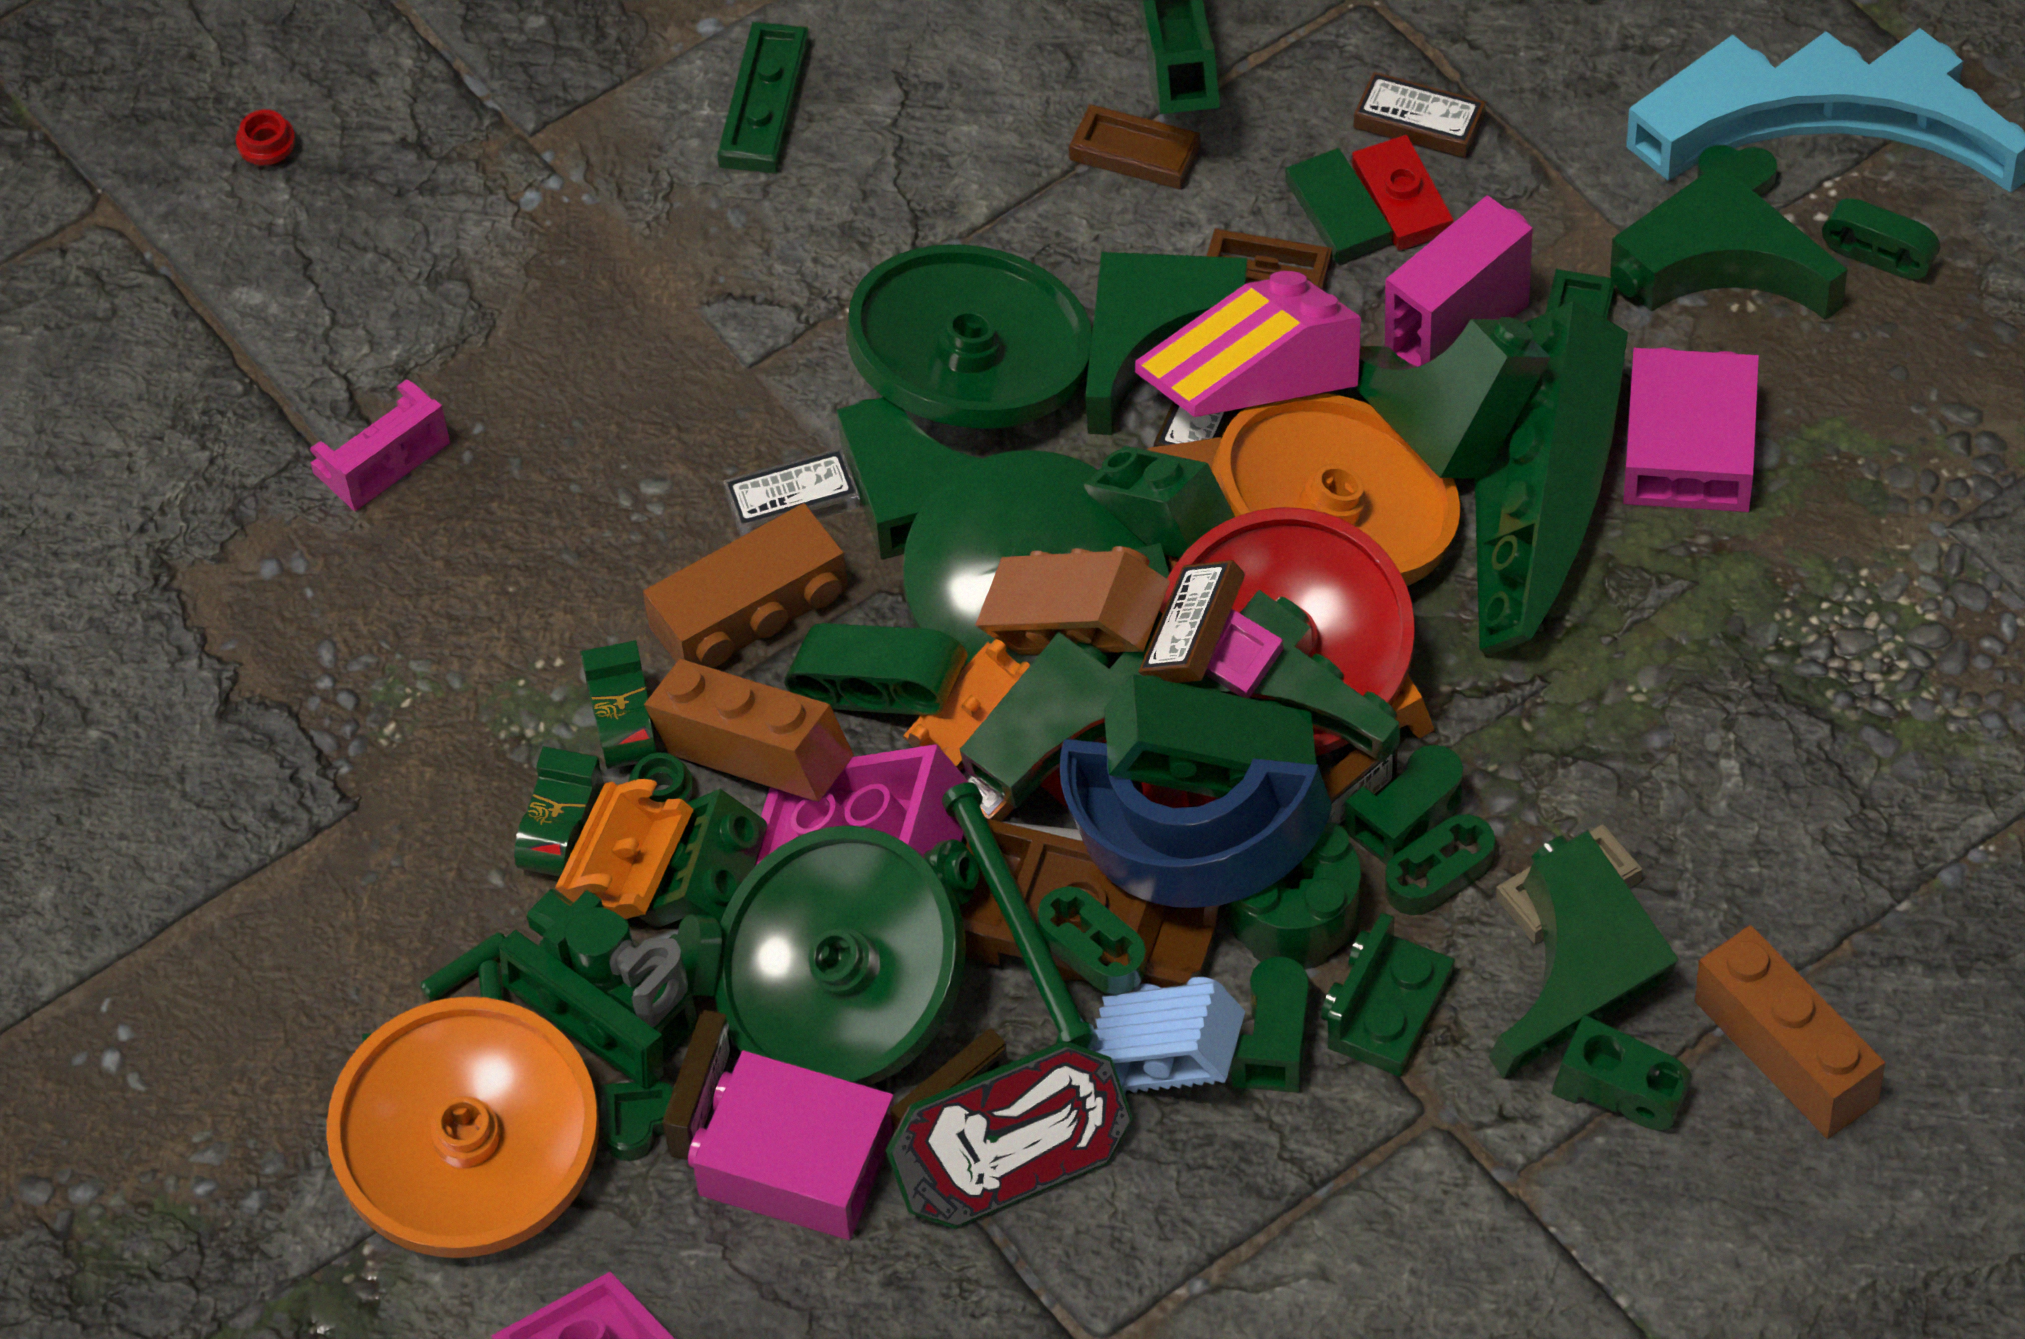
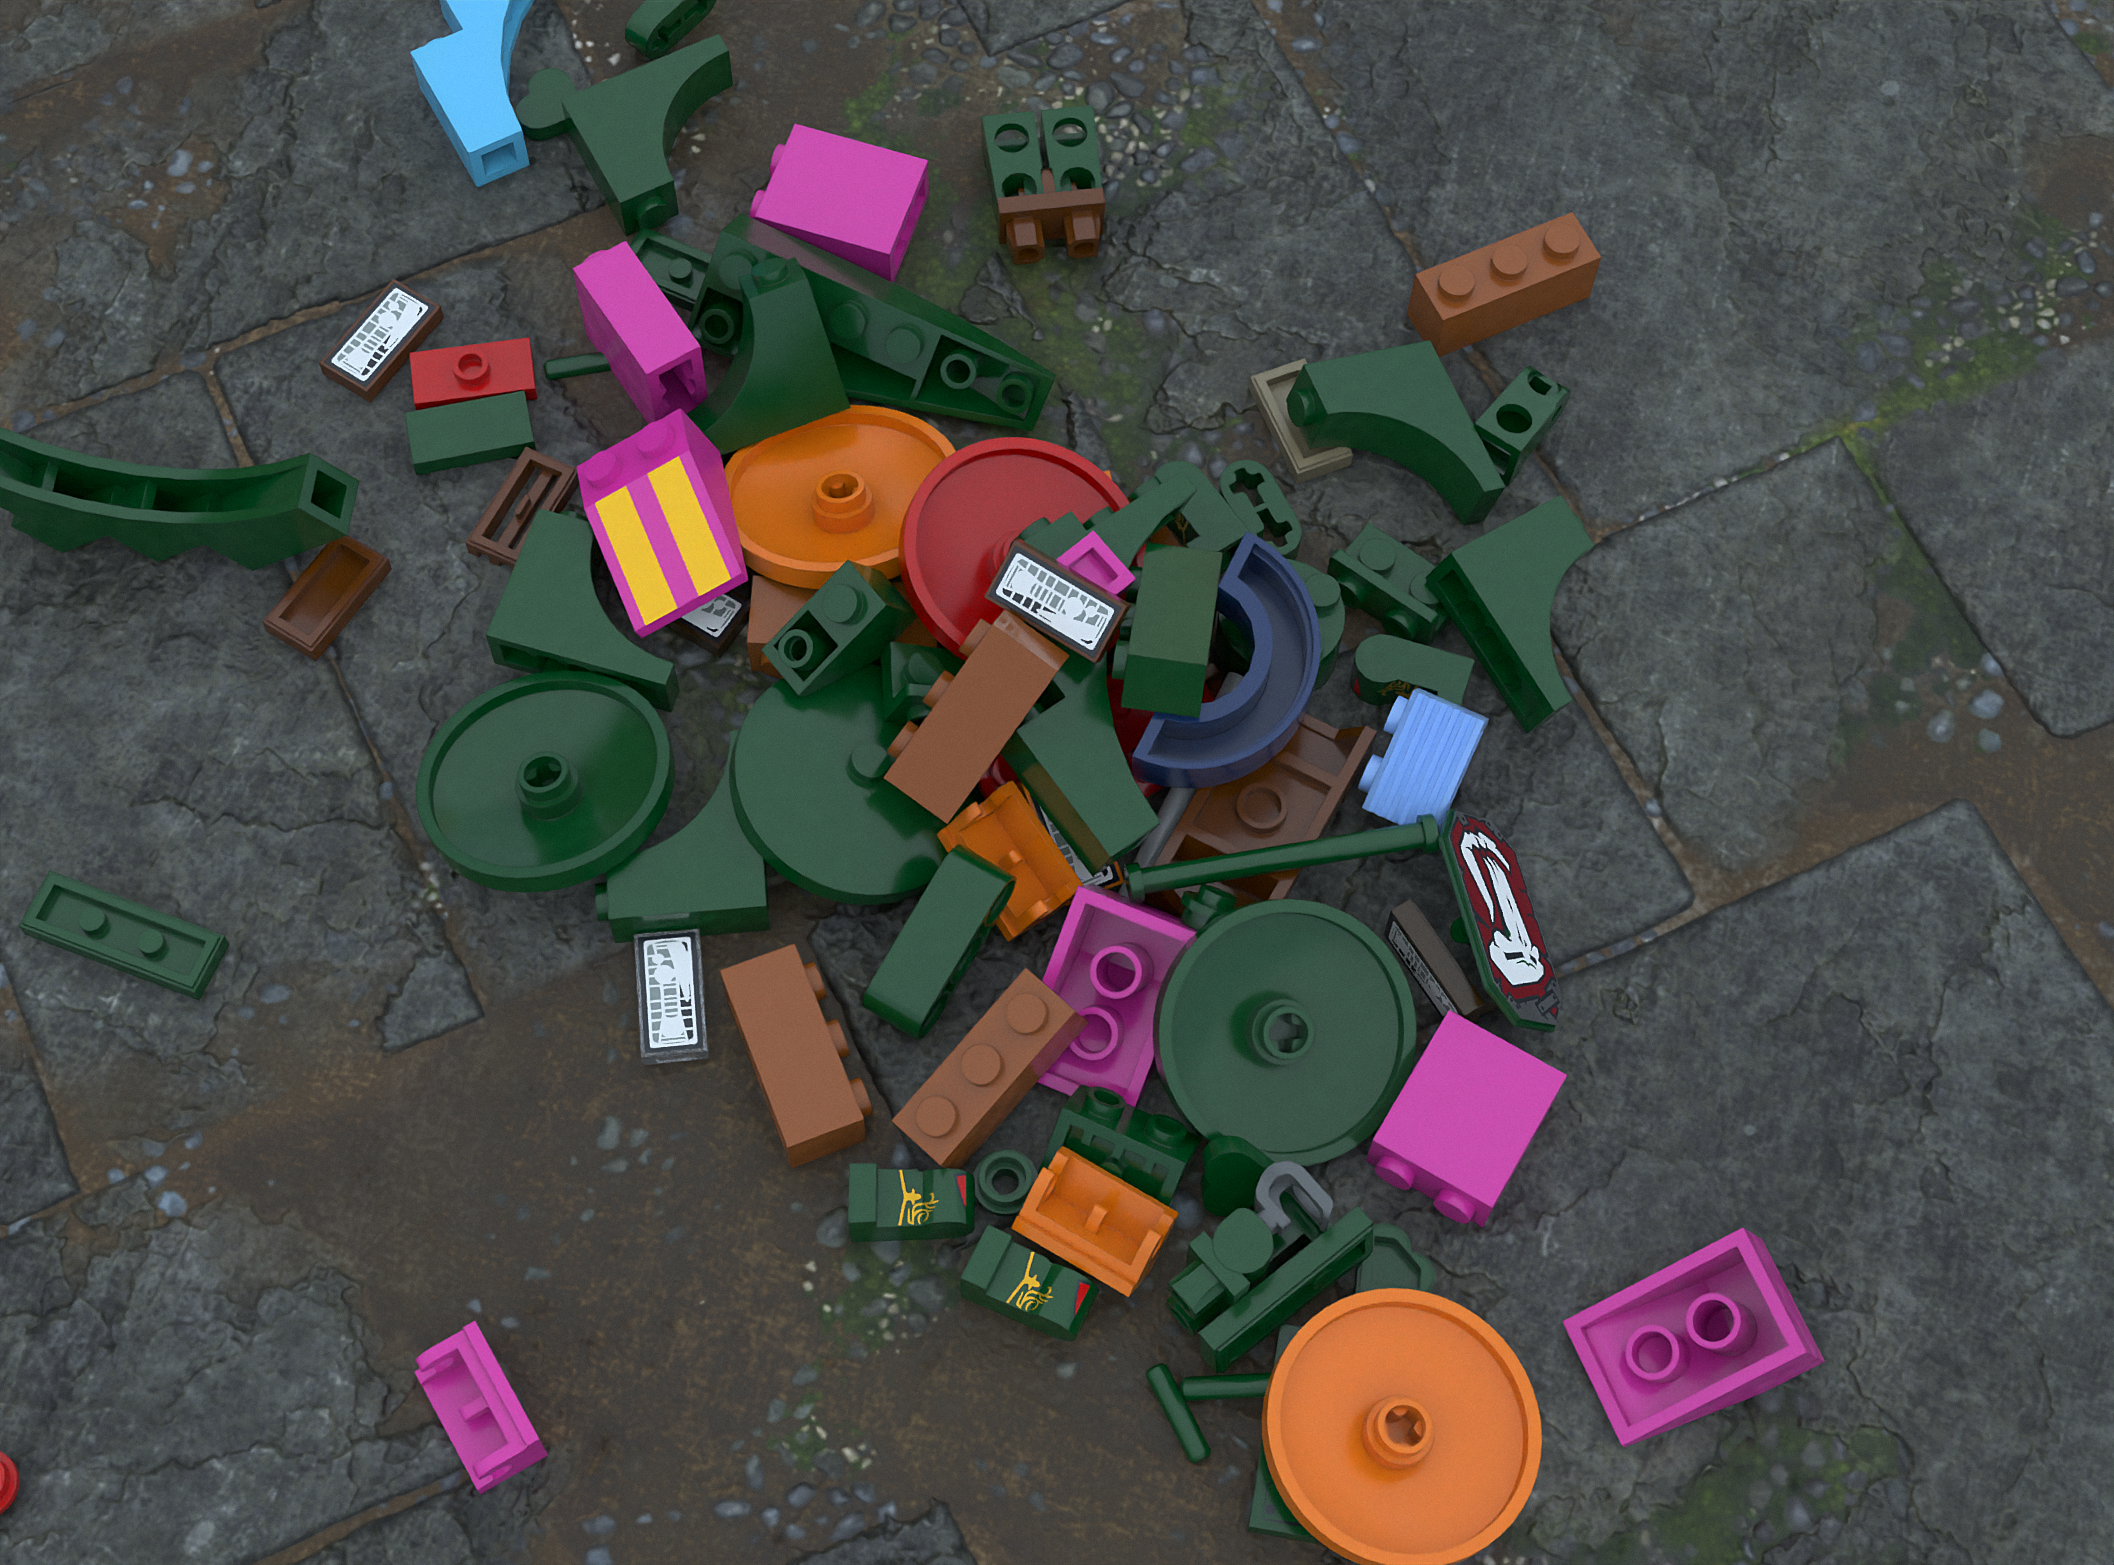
camera: 85 degrees left, 10 degrees up
(697, 1082) = (1382, 1198): dark brown tile -> none
(1084, 947) = (1315, 785): dark green beam -> none
(1397, 1080) = (1503, 600): none -> dark green arch
(1780, 594) = (1051, 201): none -> hips

